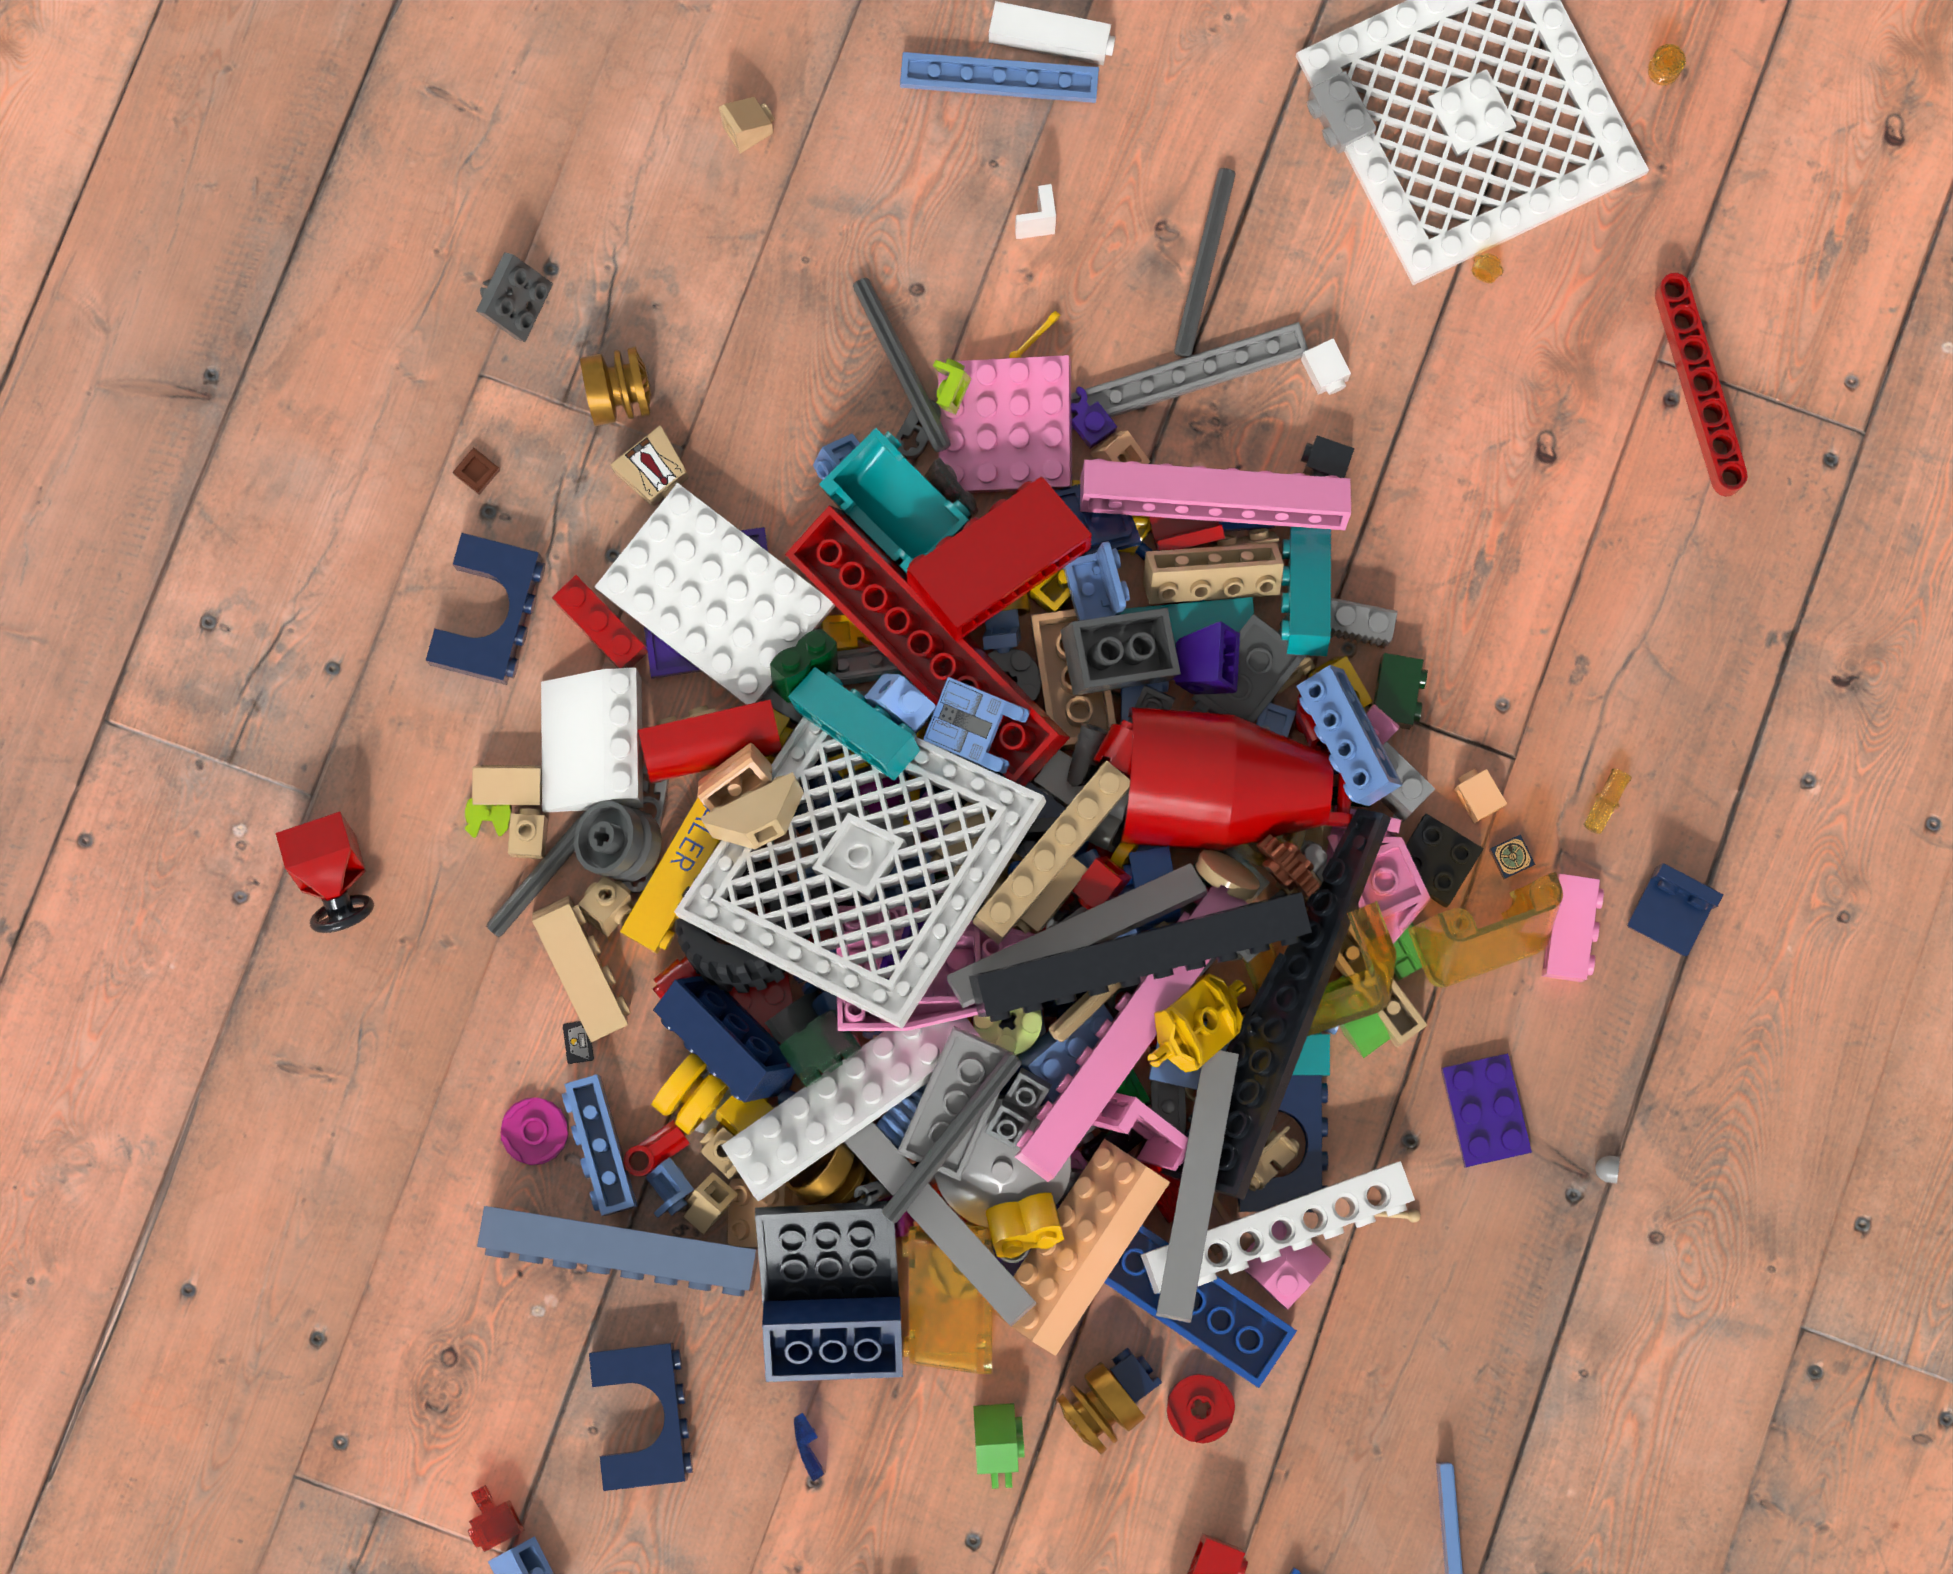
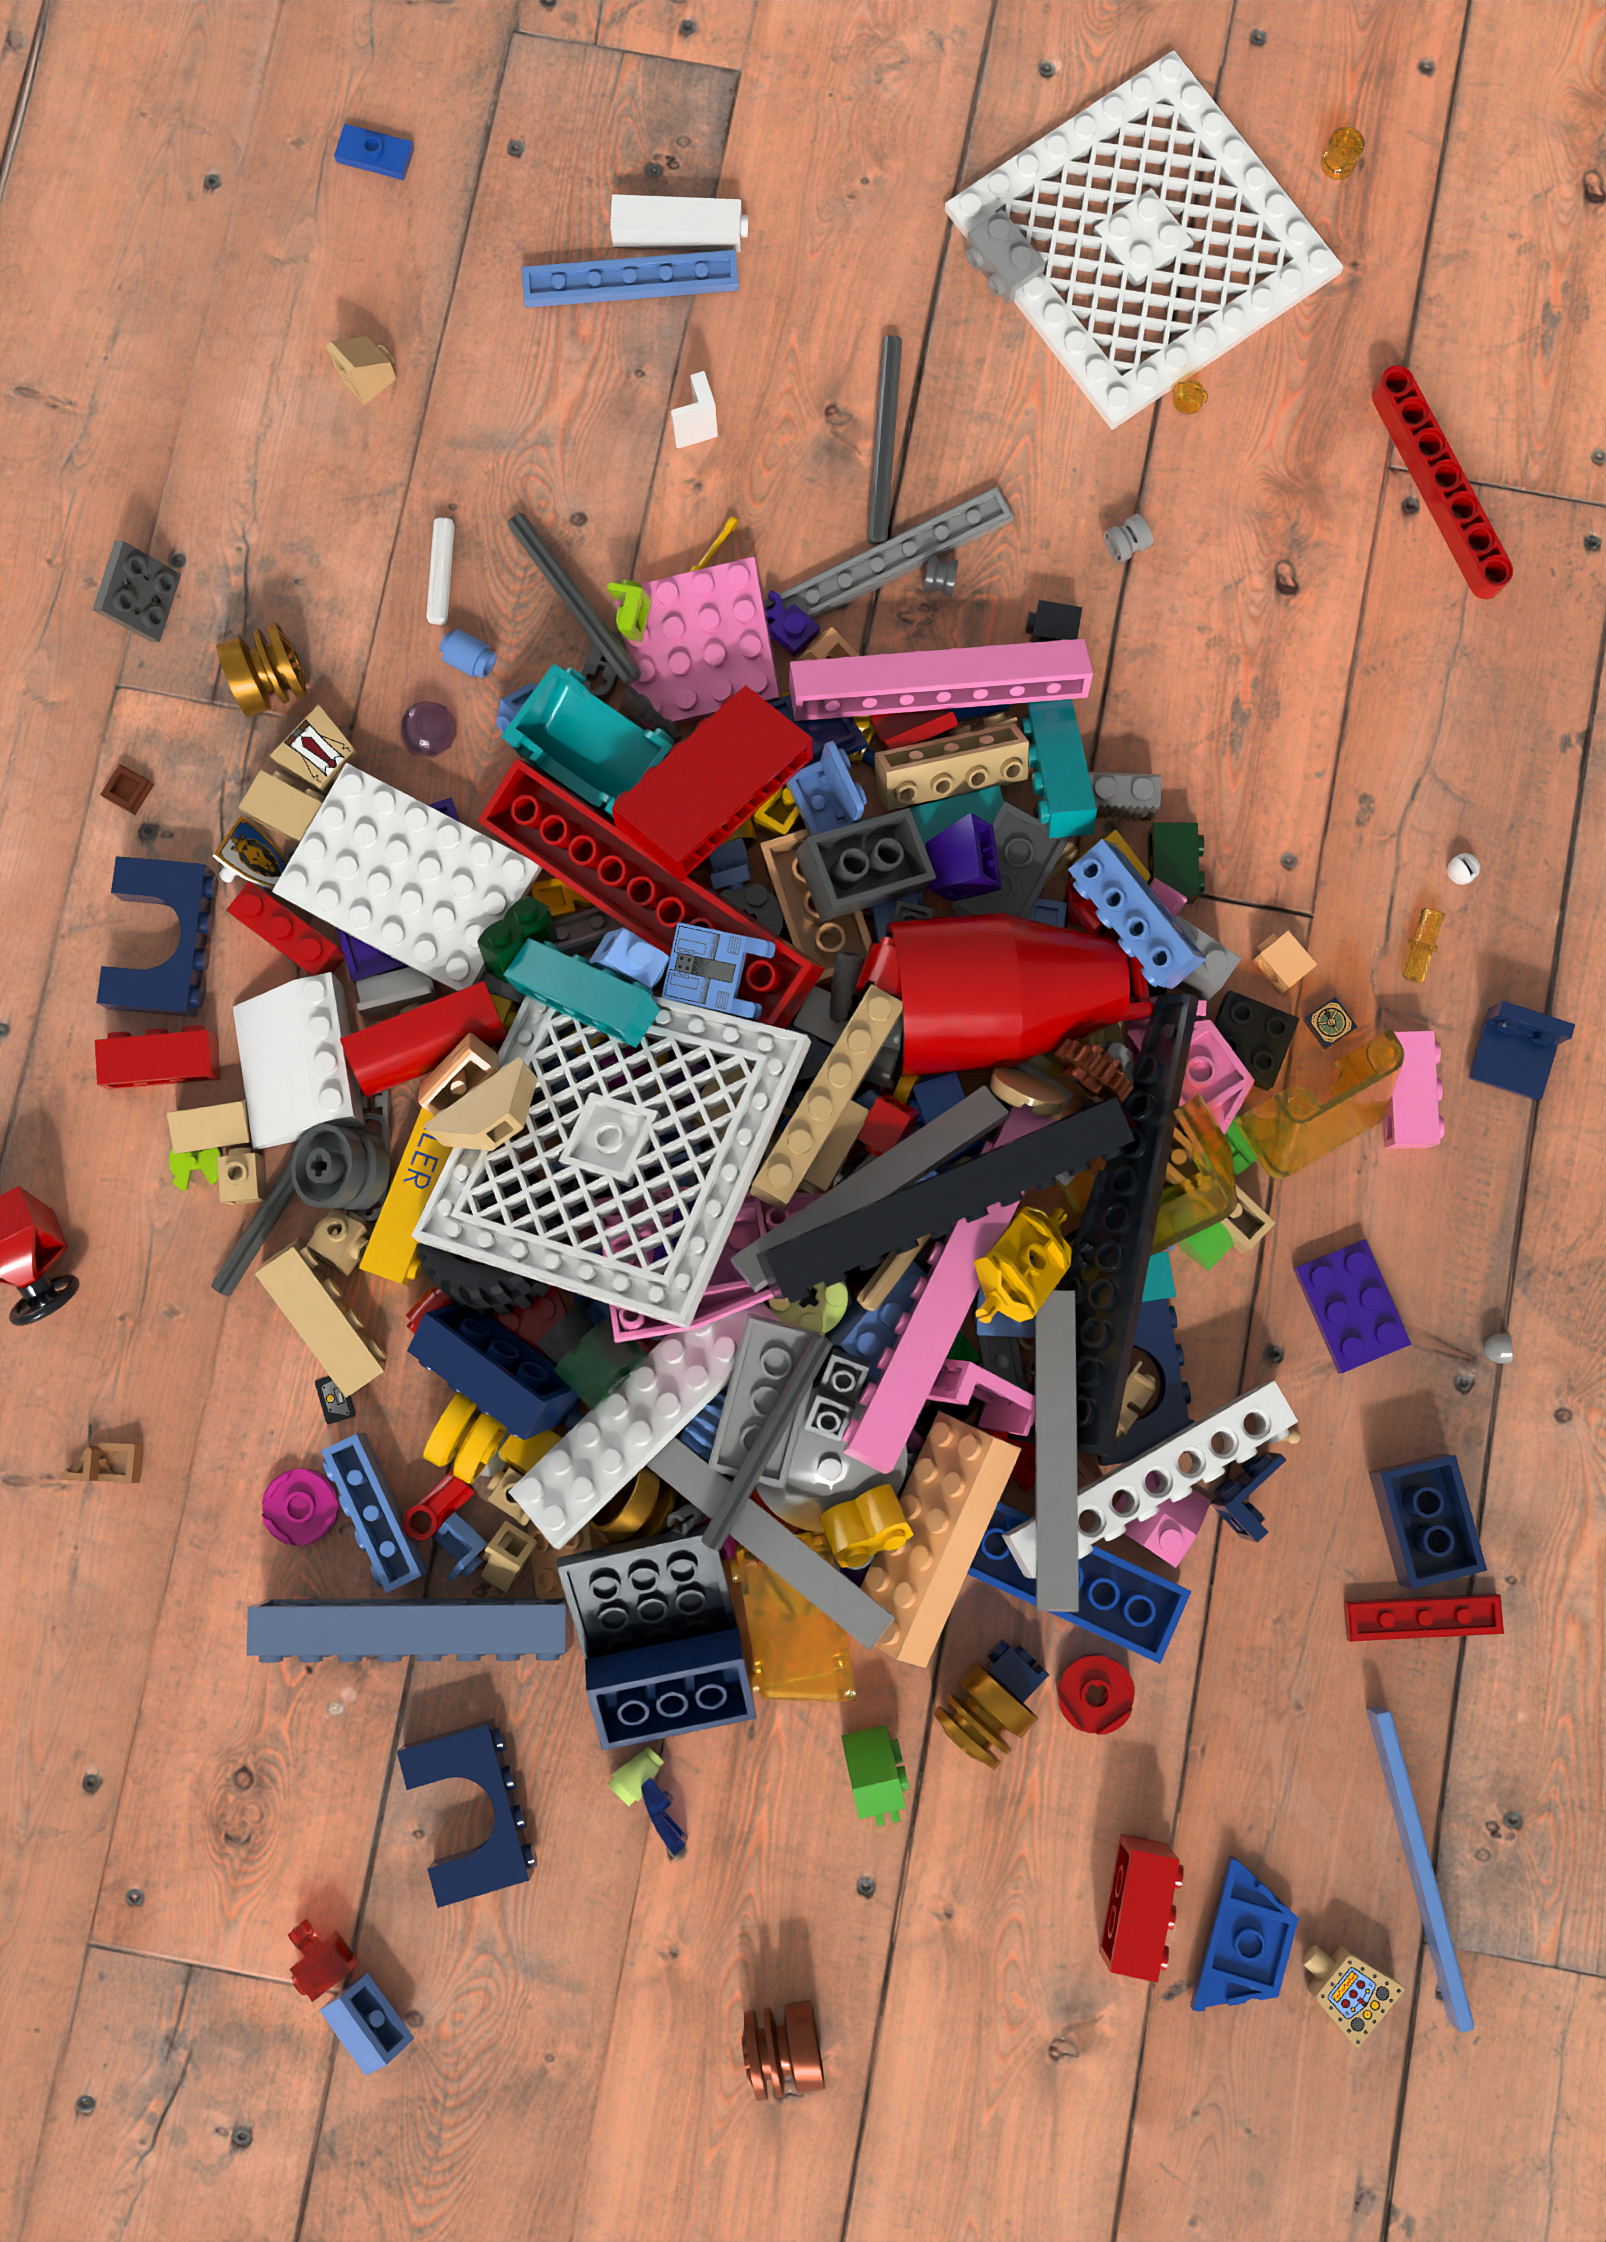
camera: 10 degrees left, 0 degrees up
(372, 1065) = (107, 1463): none -> medium nougat slope
(469, 716) = (157, 1058): none -> red brick
(579, 551) = (250, 856): none -> shield
(613, 511) = (280, 806): none -> tan brick
(686, 692) = (394, 992): none -> white panel
(752, 460) = (427, 729): none -> clear purple hair
(782, 1413) = (629, 1778): none -> yellowish green cone
(785, 318) = (440, 571): none -> white axle
(798, 399) = (467, 654): none -> medium blue brick
(1233, 397) = (940, 576): none -> dark grey wheel
(1326, 367) = (1035, 528): white brick -> none
(1354, 1274) = (1230, 1496): none -> dark blue bracket
(1408, 390) = (1128, 538): none -> light grey wheel
(1500, 1391) = (1423, 1617): none -> red tile
(1515, 1306) = (1427, 1521): none -> dark blue brick
(1651, 740) = (1458, 870): none -> white hinge

